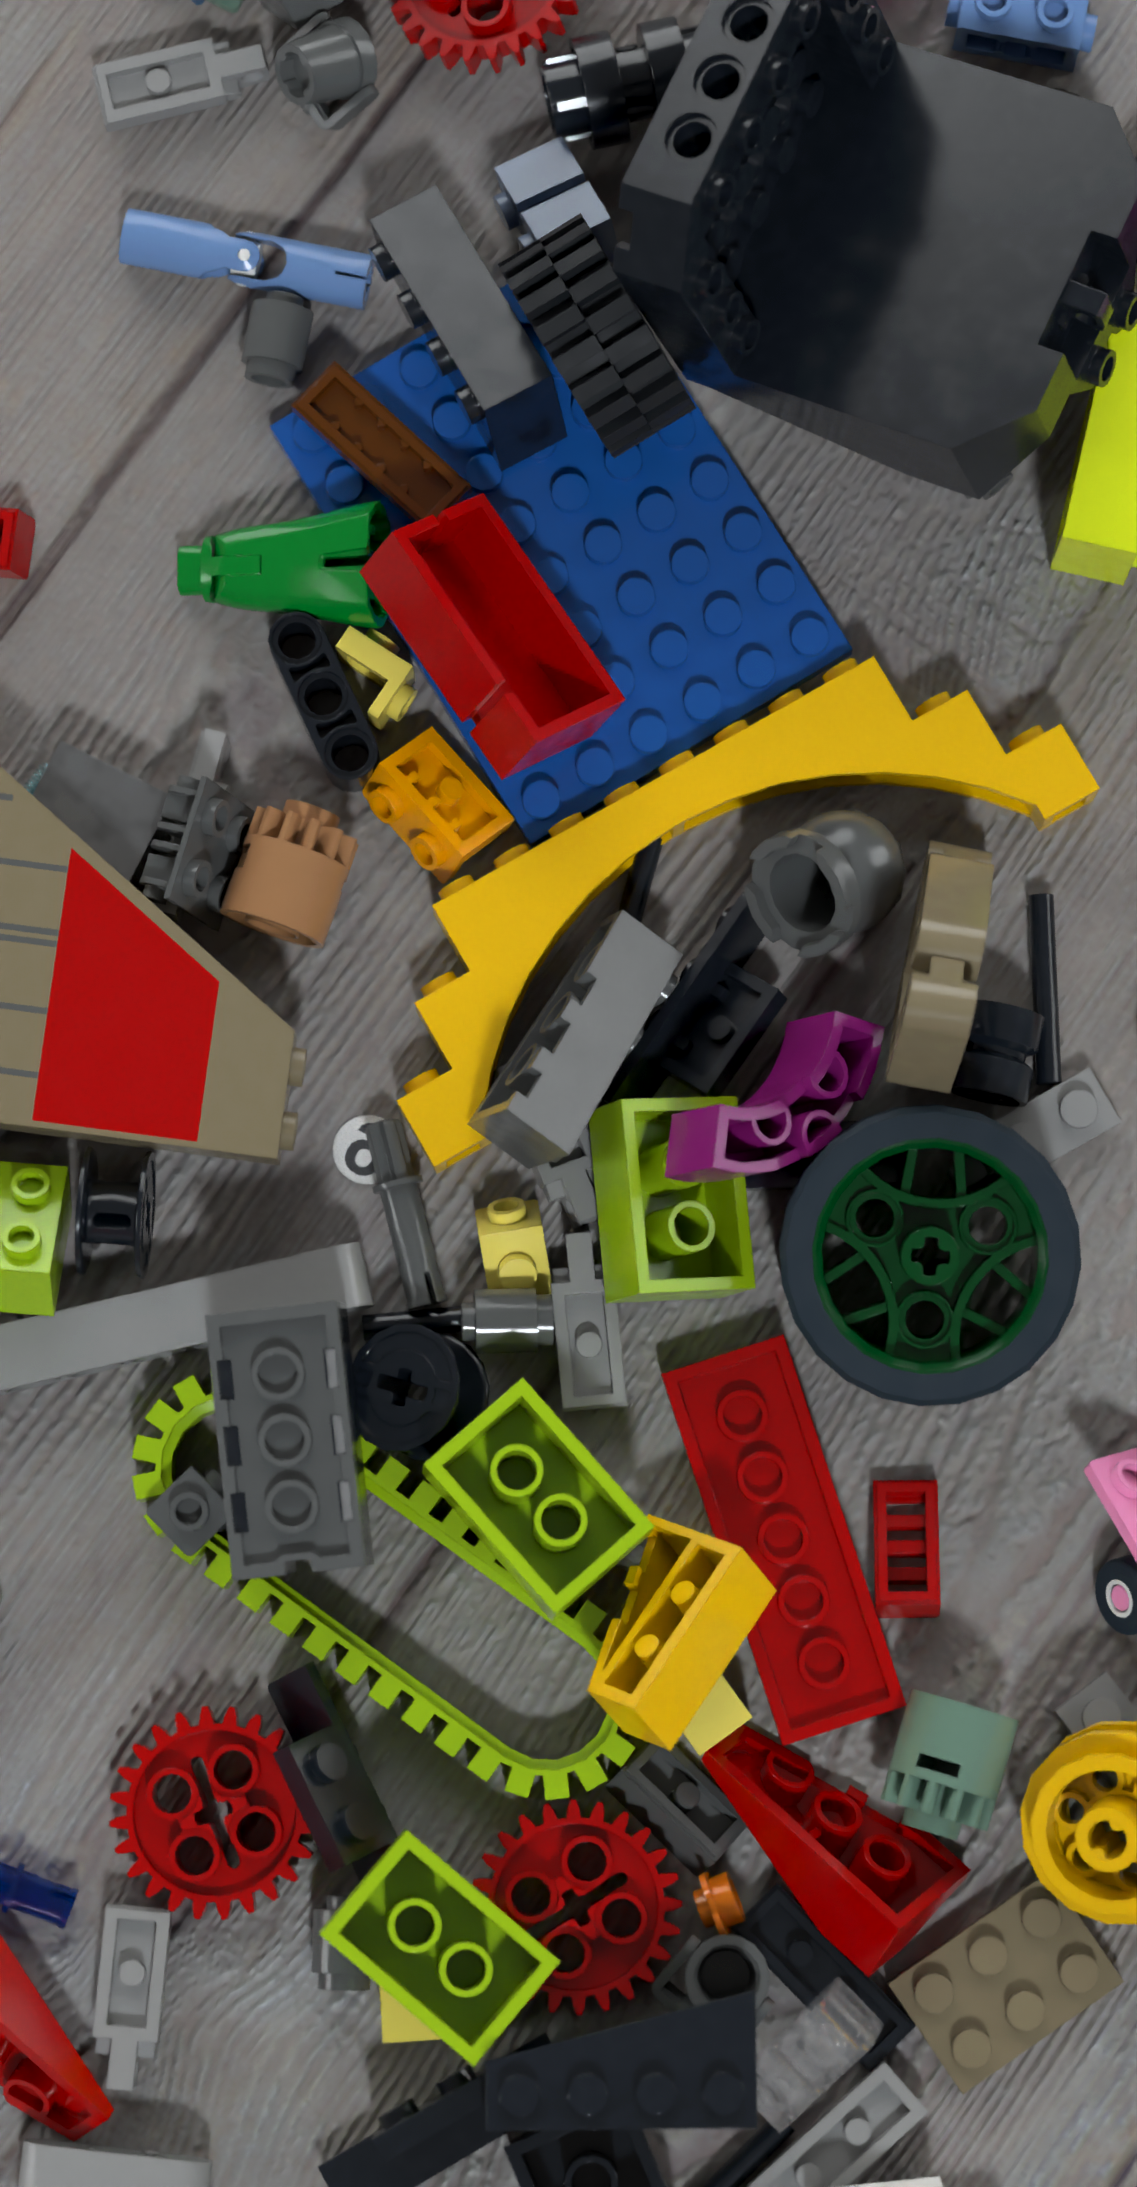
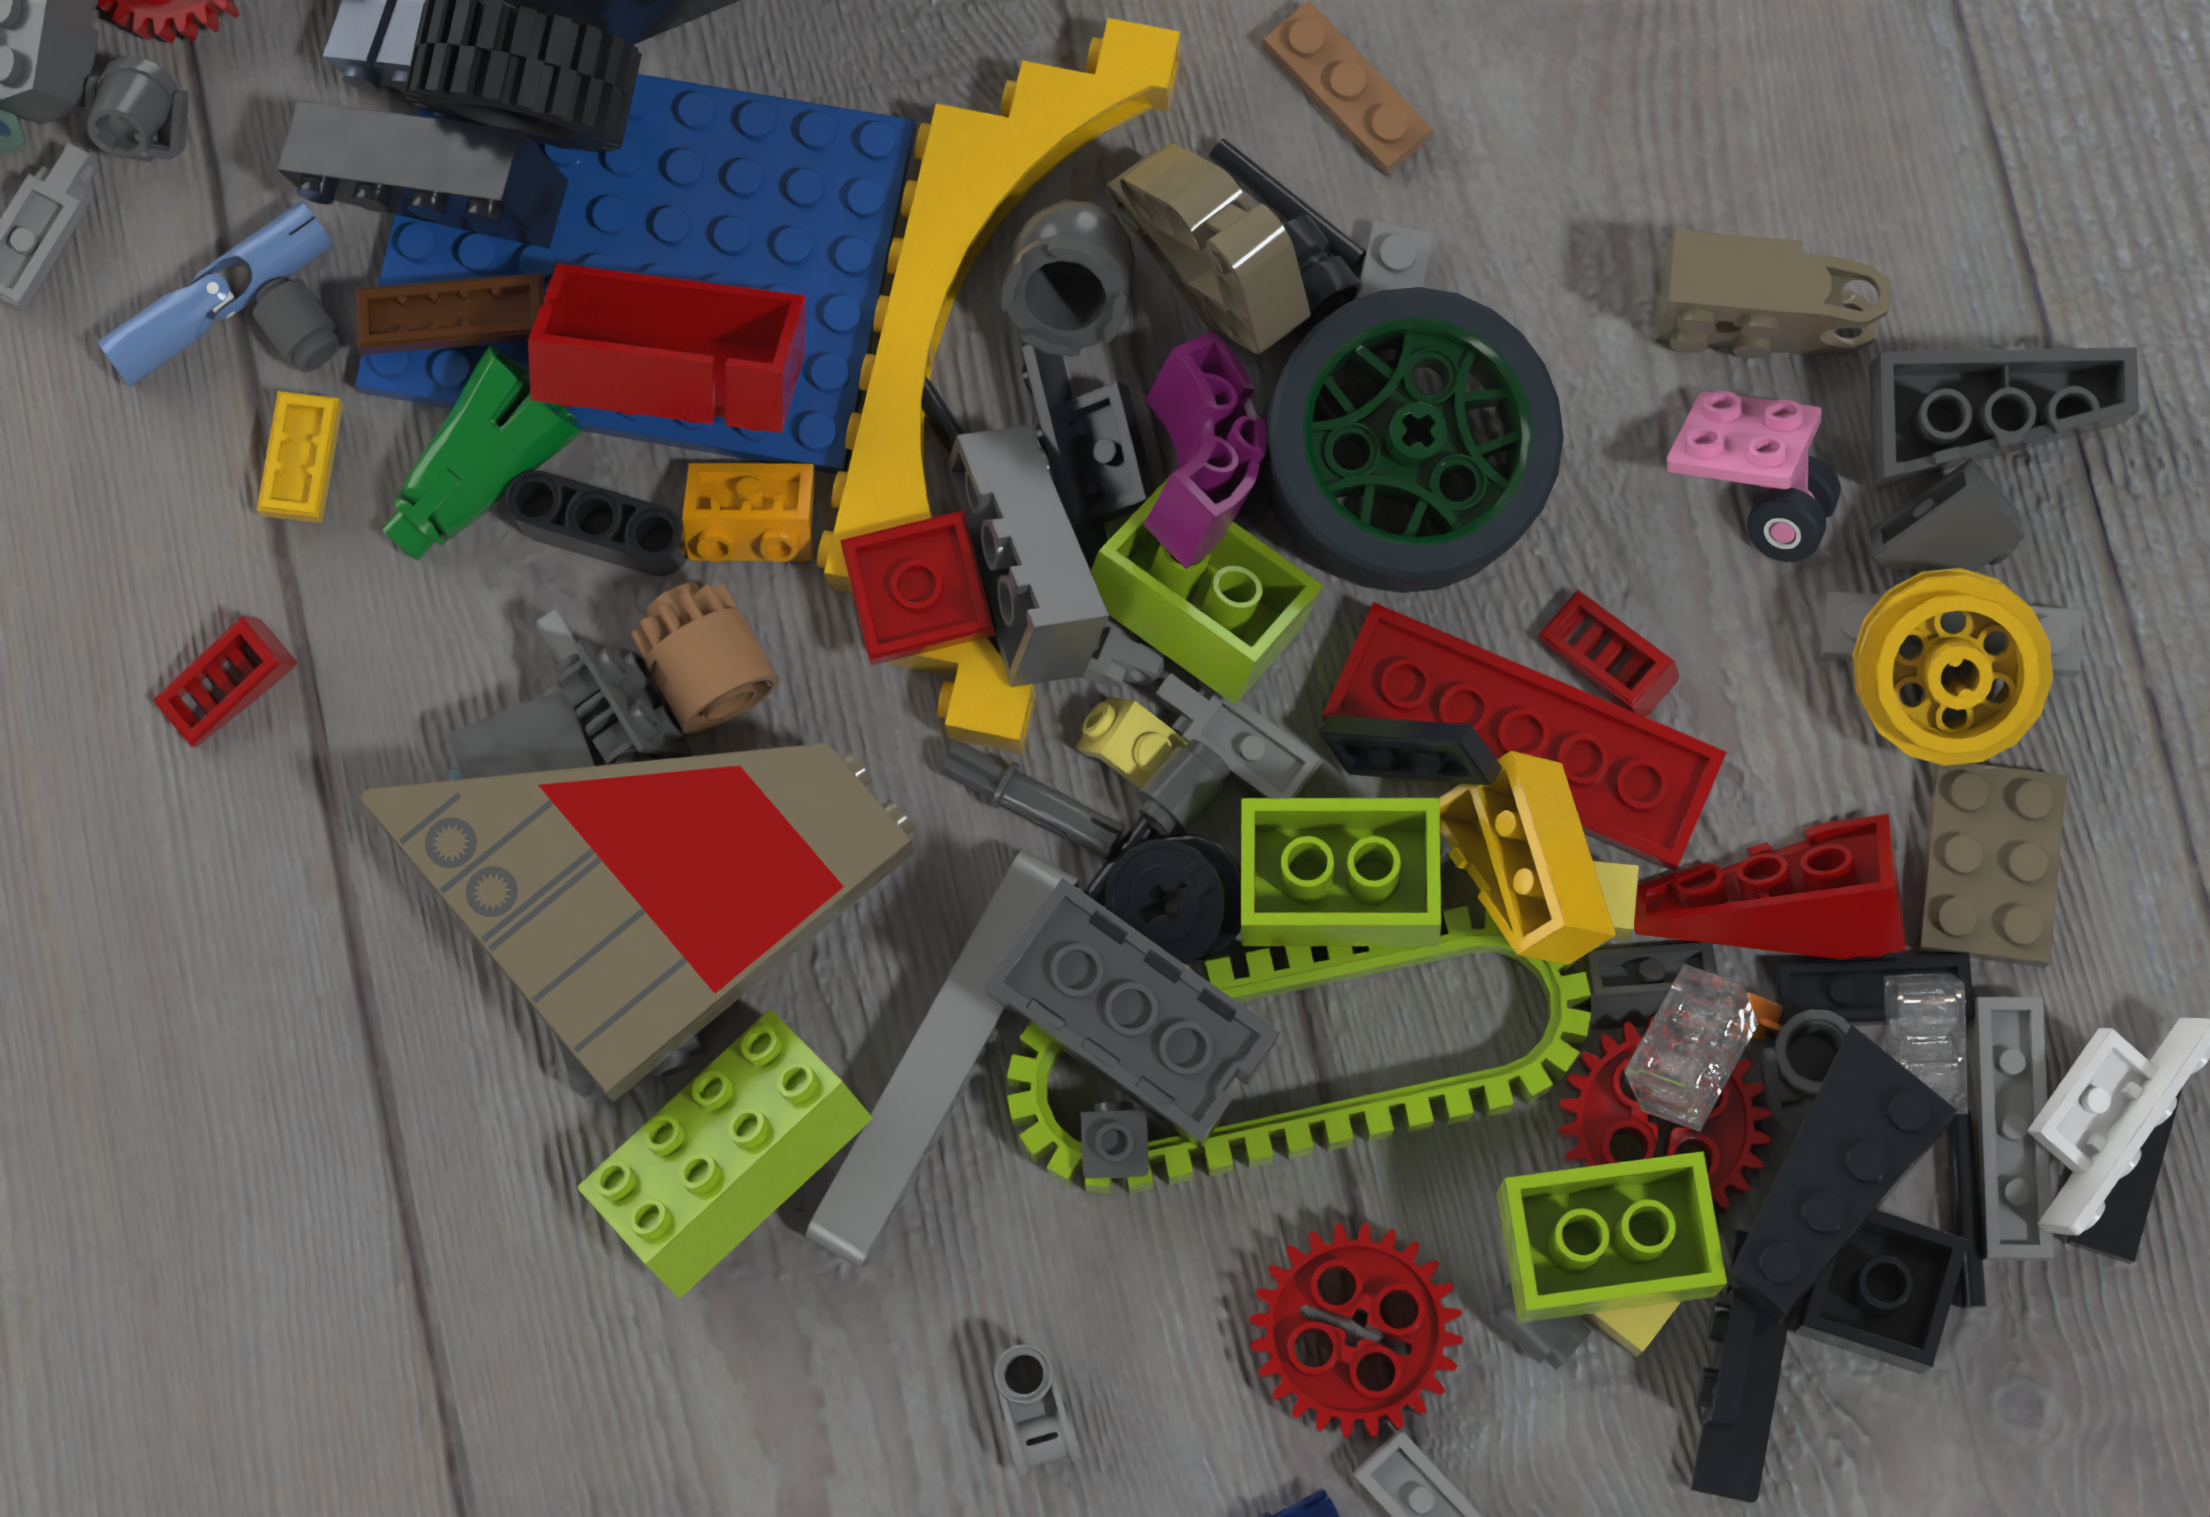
camera: 45 degrees left, 5 degrees down
(115, 1213) = (838, 1003): black piece -> none
(179, 436) = (300, 457): none -> yellow plate
(329, 1775) = (1403, 1217): black bracket -> none
(352, 1150) = (951, 798): clear sticker -> none
(377, 660) = (607, 459): light yellow bracket -> none
(480, 986) = (917, 587): none -> red tile
(639, 1881) = (1691, 1047): none -> clear brick
(682, 1468) = (1410, 750): none -> black tile
(948, 1764) = (1797, 756): sand green gear -> none

